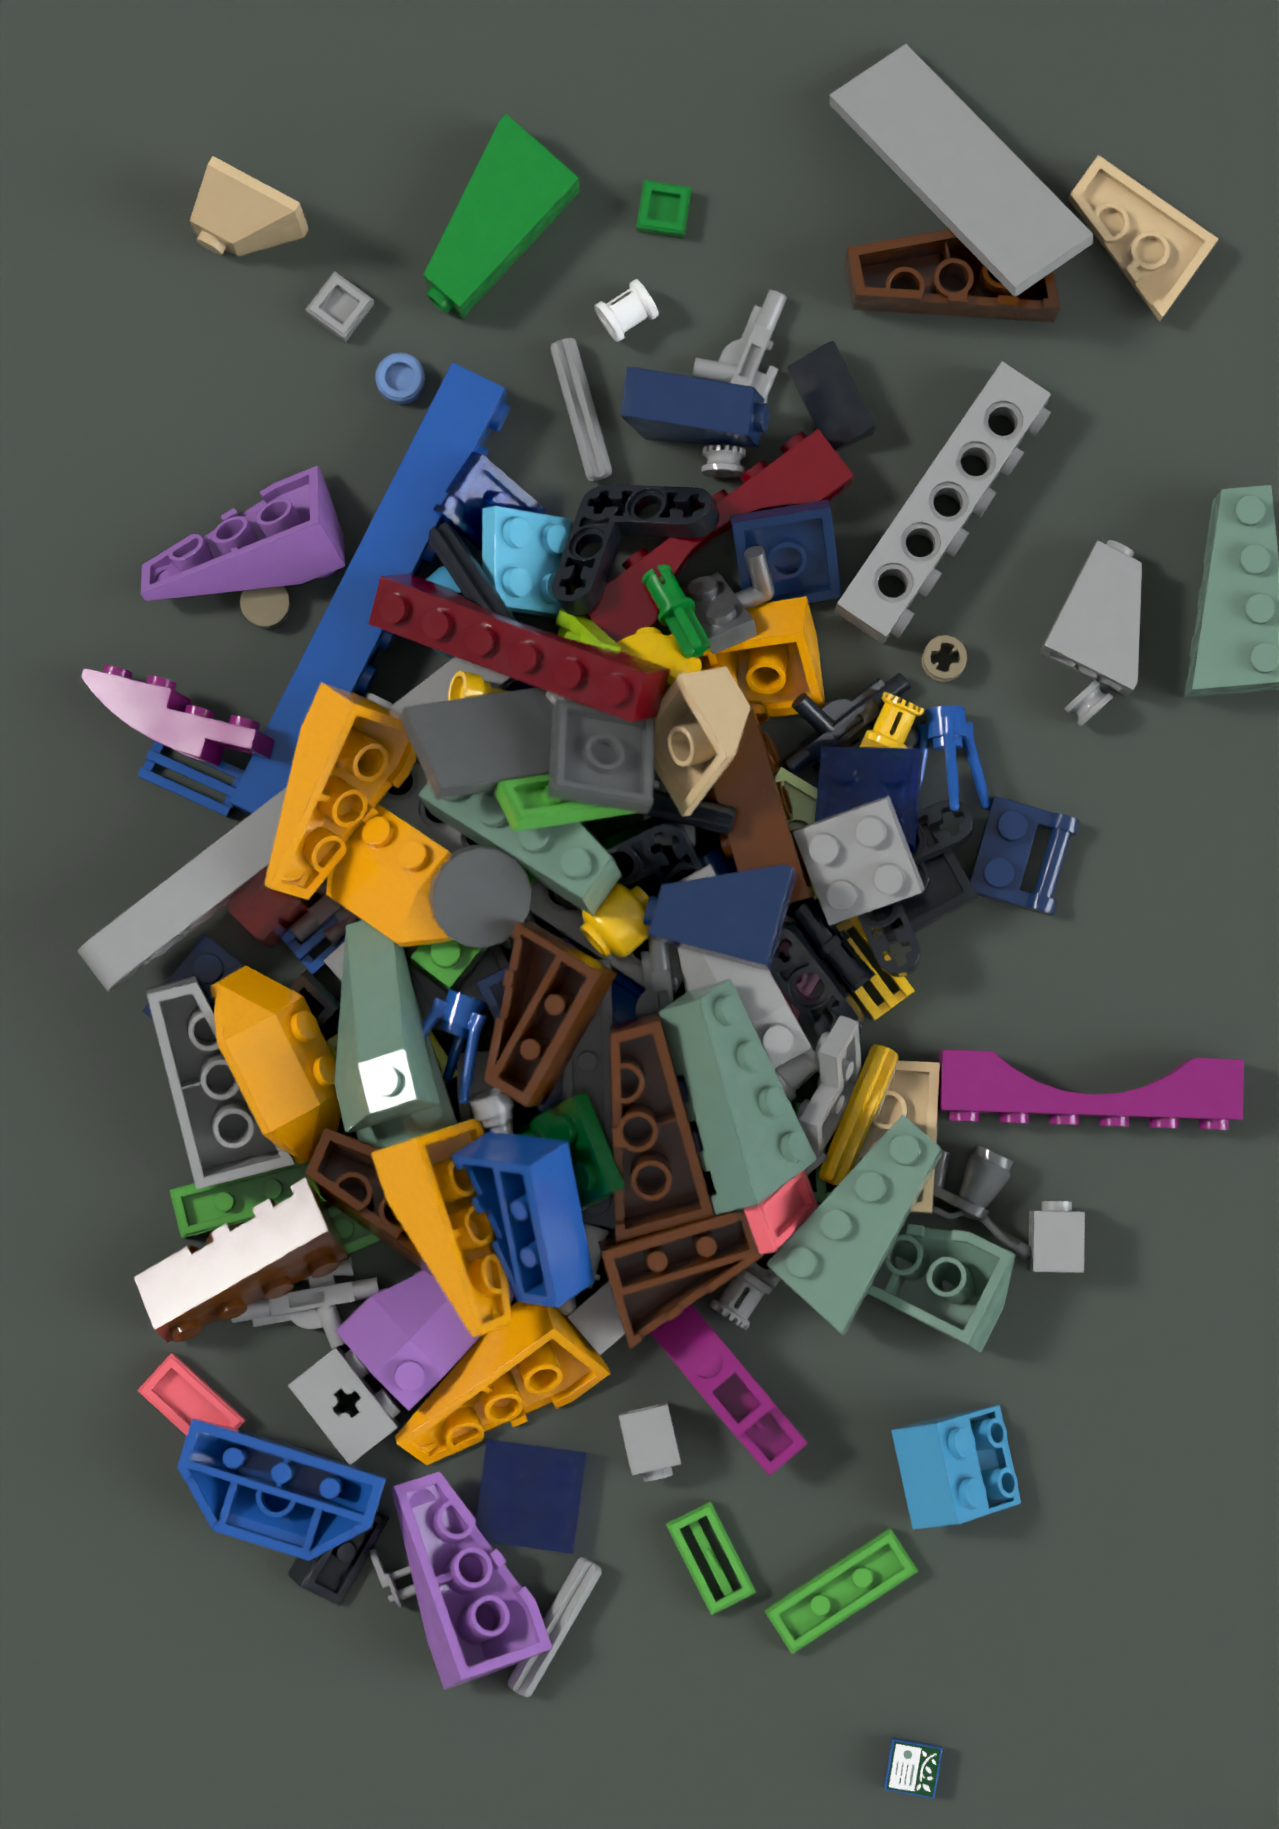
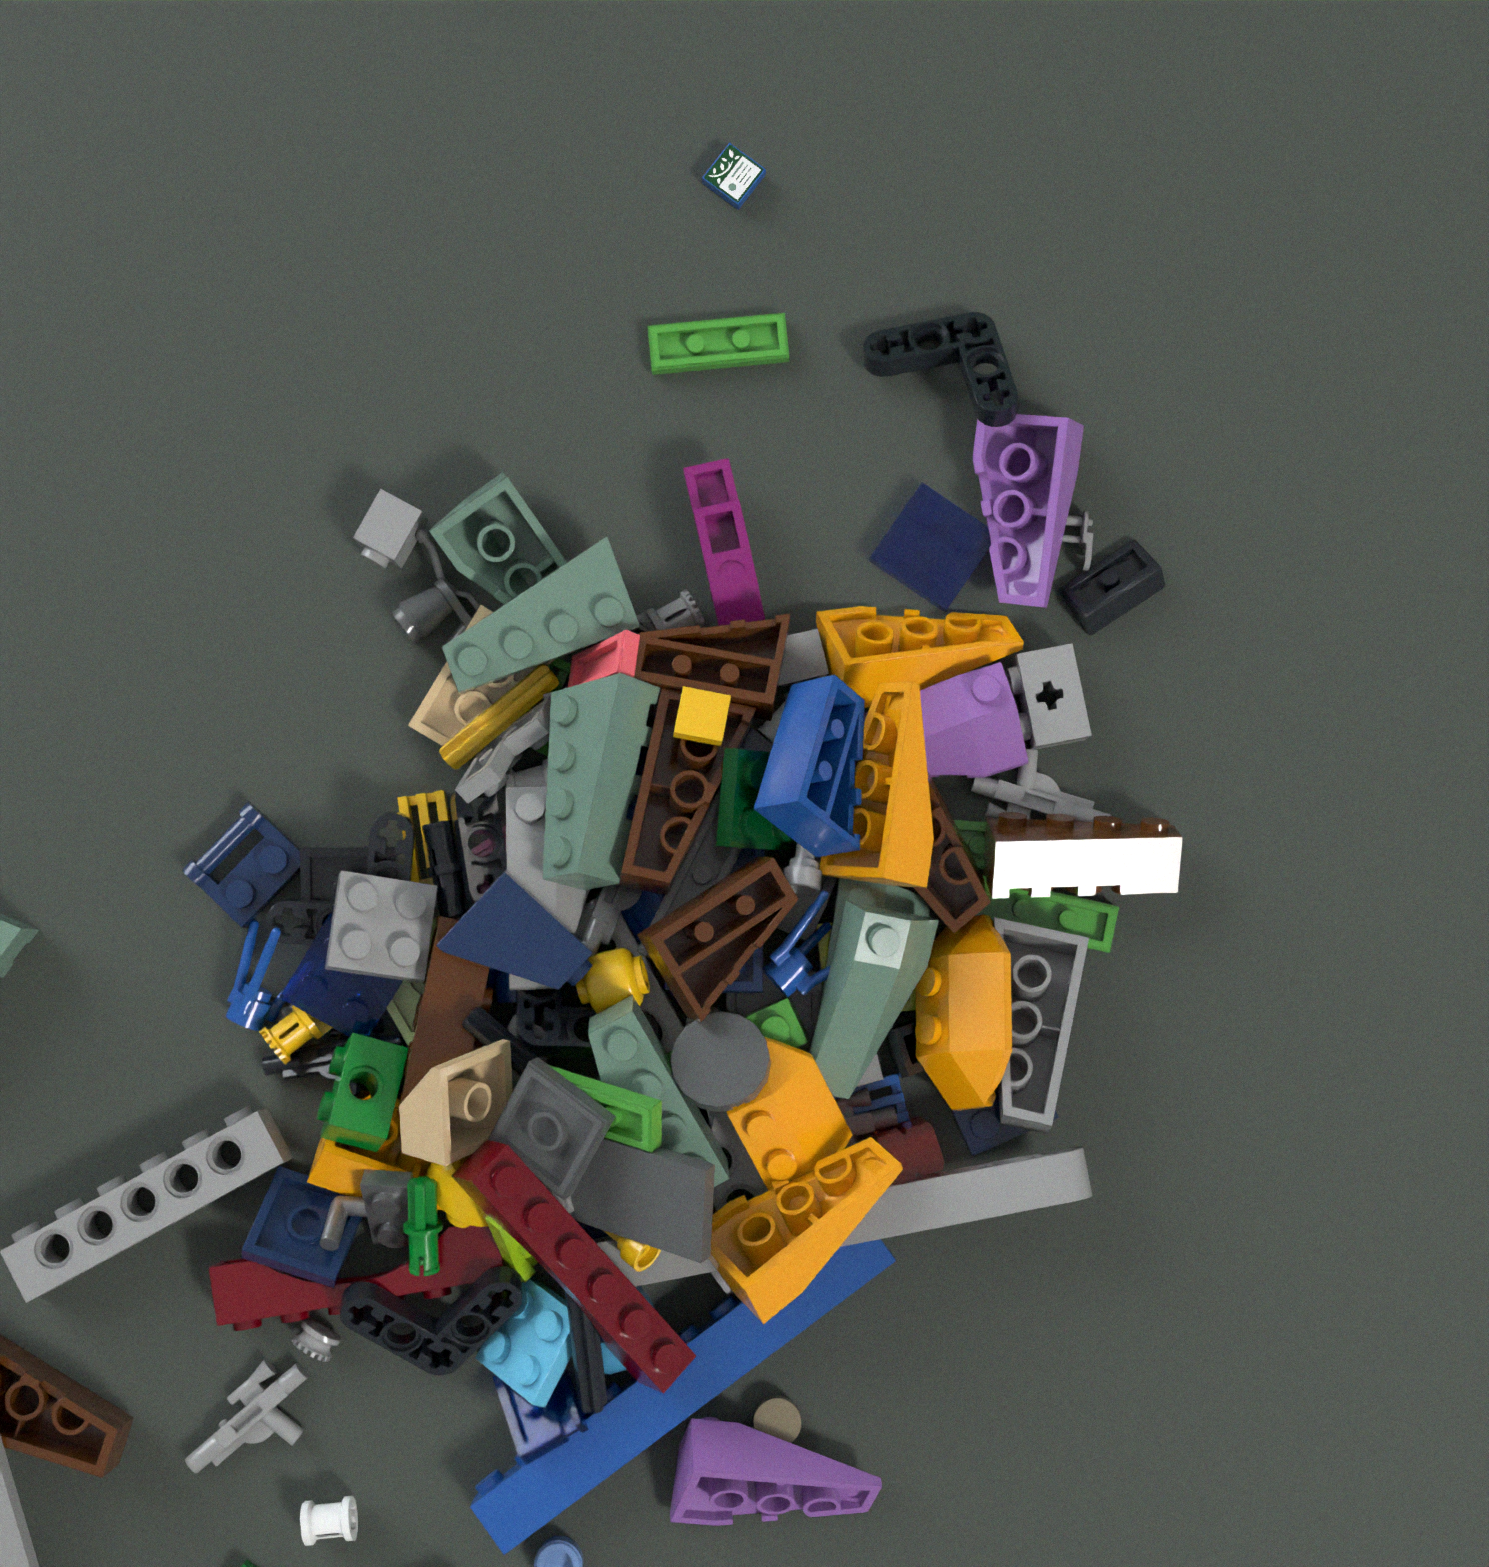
camera: 155 degrees left, 0 degrees up
(155, 757) = (940, 1333): blue tile -> none
(170, 719) = (911, 1359): slope -> none
(185, 1395) = (1177, 763): coral tile -> none
(276, 1490) = (1142, 654): blue wedge -> none
(557, 1624) = (950, 442): light grey axle -> none
(581, 409) = (415, 1452): light grey axle -> none
(595, 1705) = (965, 351): none -> black beam
(650, 1441) = (811, 539): light grey brick -> none
(661, 1206) = (702, 716): none -> yellow tile
(691, 1518) = (811, 462): bright green tile -> none
(692, 409) = (315, 1401): dark blue slope -> none
(792, 731) = (377, 1067): none -> green brick
(831, 397) = (192, 1349): black slope -> none
(954, 669) = (225, 1081): dark tan bush -> none
(956, 1467) = (572, 390): dark azure slope -> none
(1088, 703) = (119, 965): light grey bush -> none
(1101, 619) = (68, 1030): light grey slope -> none
(1194, 1090) = (214, 597): magenta arch -> none

